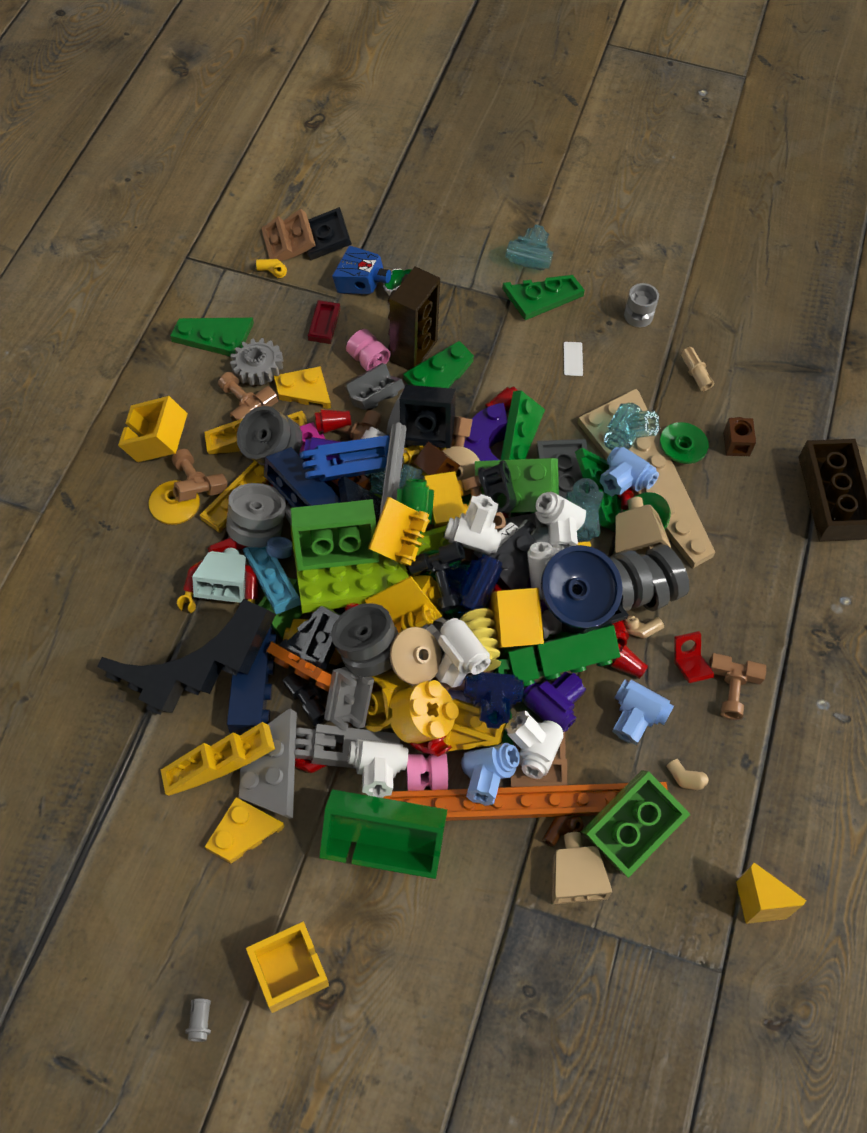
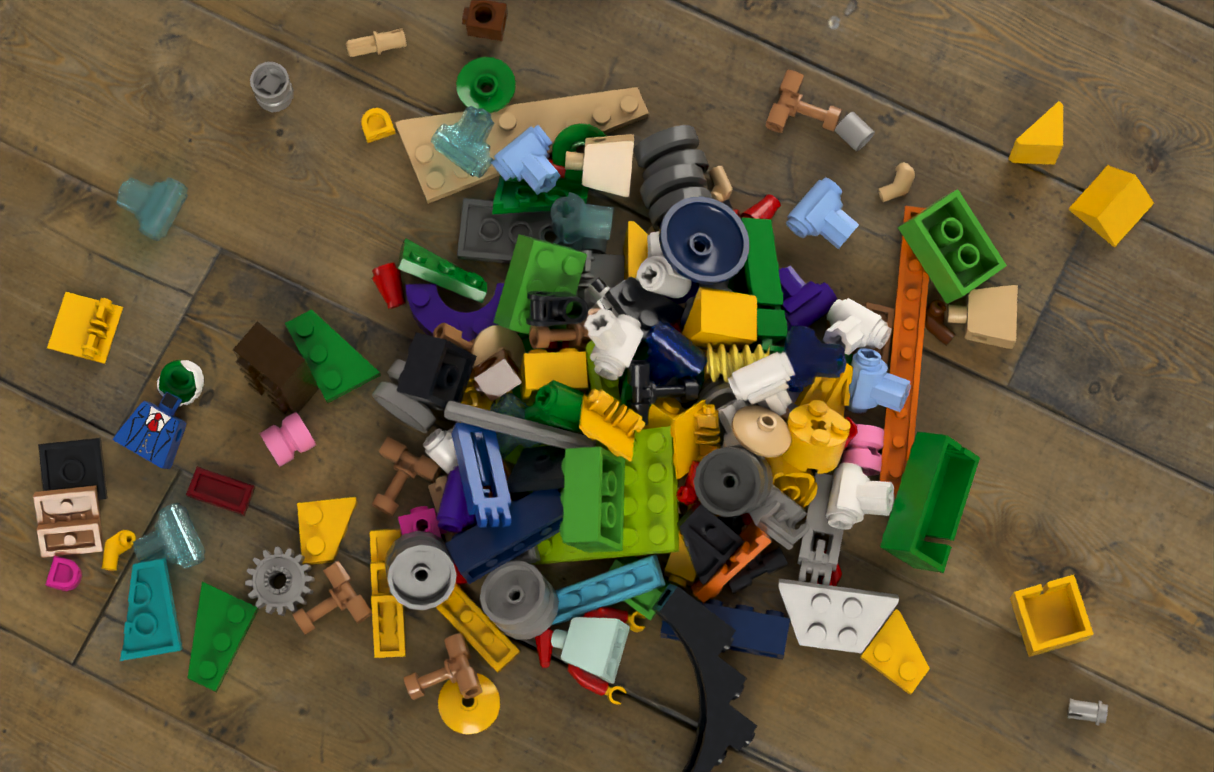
camera: 75 degrees left, 15 degrees up
(159, 428) = (378, 708): yellow piece -> none
(214, 761) = (819, 670): yellow slope -> none
(220, 290) = (151, 613): none -> teal wing
(250, 241) = (63, 574): none -> dark pink tile
(279, 547) = (564, 577): medium blue tile -> none
(280, 293) = (173, 539): none -> clear light blue piece
(331, 420) = (397, 495): red cone -> none
(373, 387) = (346, 439): dark grey bracket -> none
(432, 228) = (85, 327): none -> yellow hinge
(539, 297) = (228, 209): green wing -> none
(561, 518) = (604, 245): white piece -> none
(573, 359) = (329, 188): white sticker -> none
(631, 379) = (376, 124): none -> yellow tile
(691, 662) = (771, 146): red bracket -> none
(719, 986) = (1112, 204): none -> yellow slope
(725, 730) = (854, 131): none -> light grey beam

